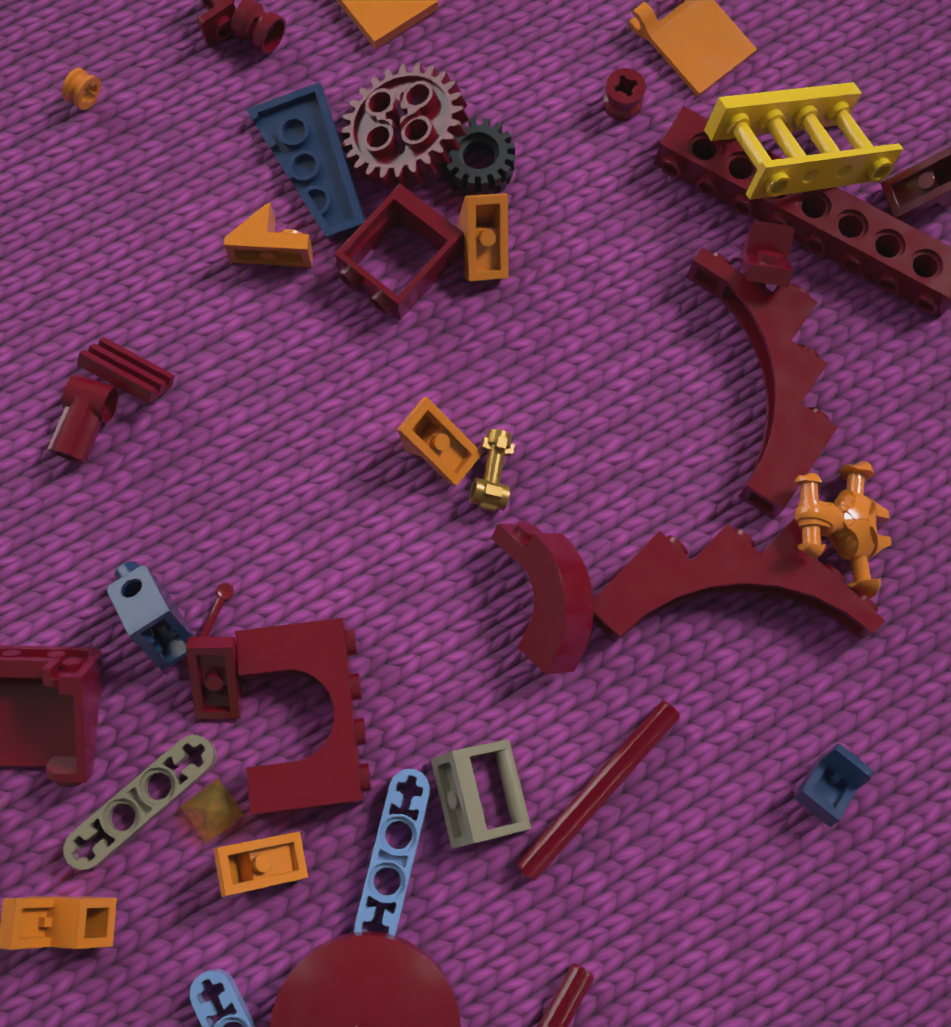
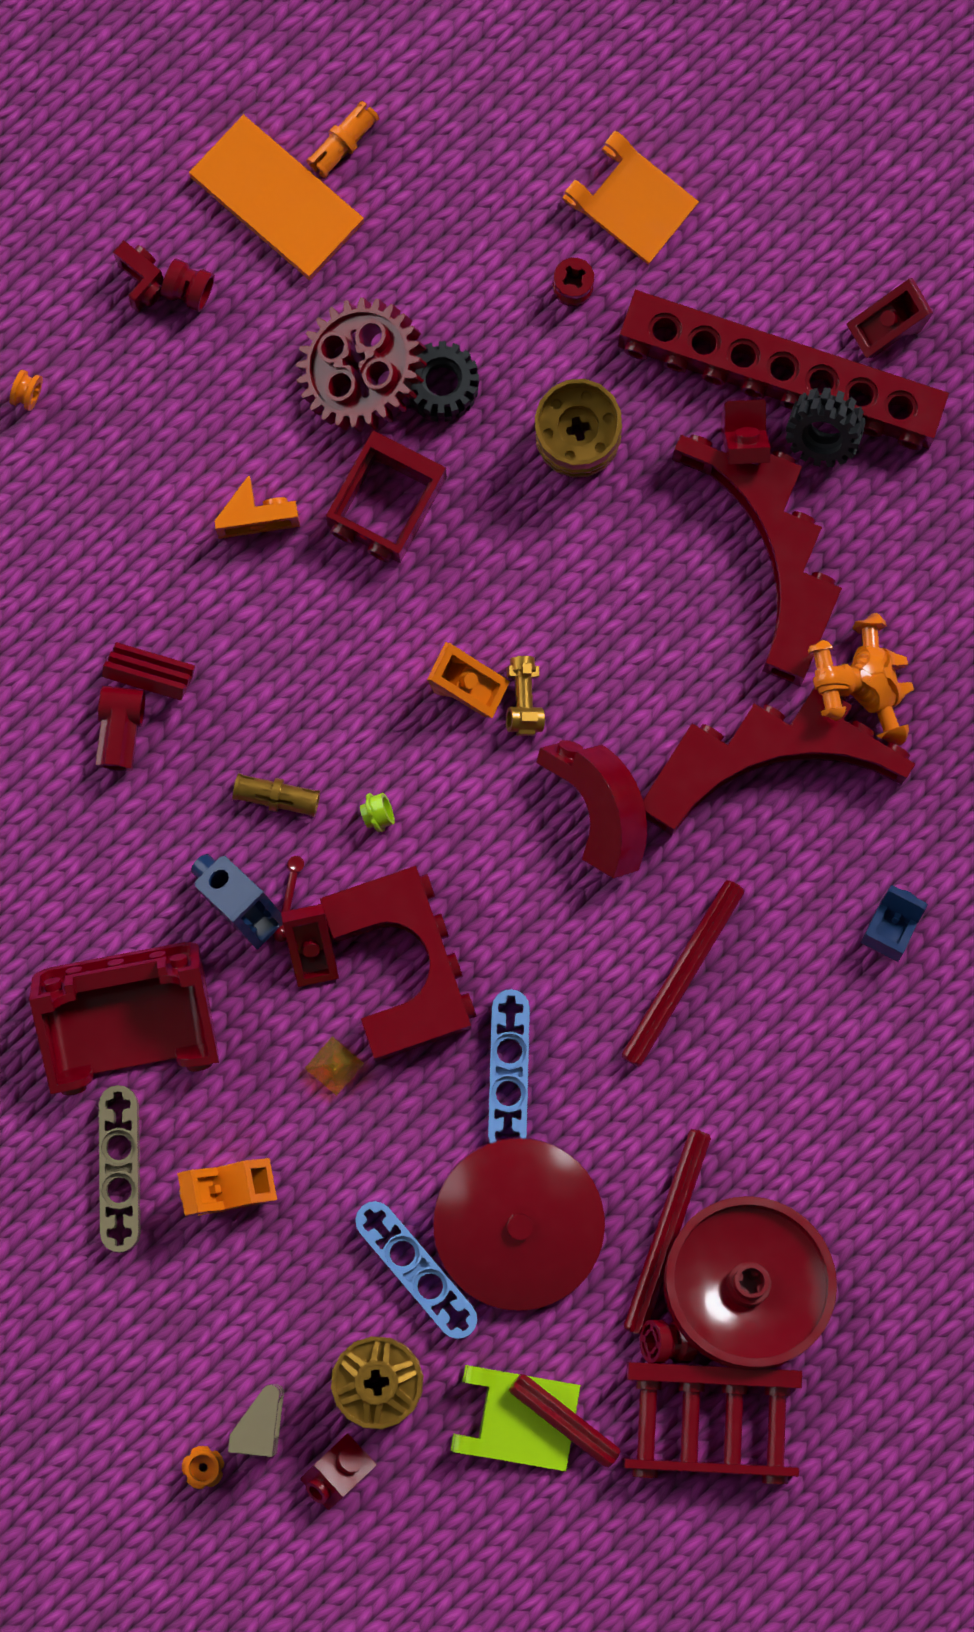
camera: 10 degrees left, 5 degrees up
(138, 797) = (264, 1068): dark tan beam -> none
(221, 517) = (276, 795): none -> pearl gold pin
(260, 863) = (393, 1099): orange slope -> none
(311, 154) = (271, 408): dark blue wing -> none
(319, 555) = (377, 812): none -> lime plate
(461, 797) = (560, 1006): dark tan tile -> none
(485, 236) = (467, 466): orange slope -> none
(606, 200) = (580, 404): none -> pearl gold wheel
(805, 110) = (755, 270): yellow fence -> none
(854, 248) = (830, 410): none -> black tyre

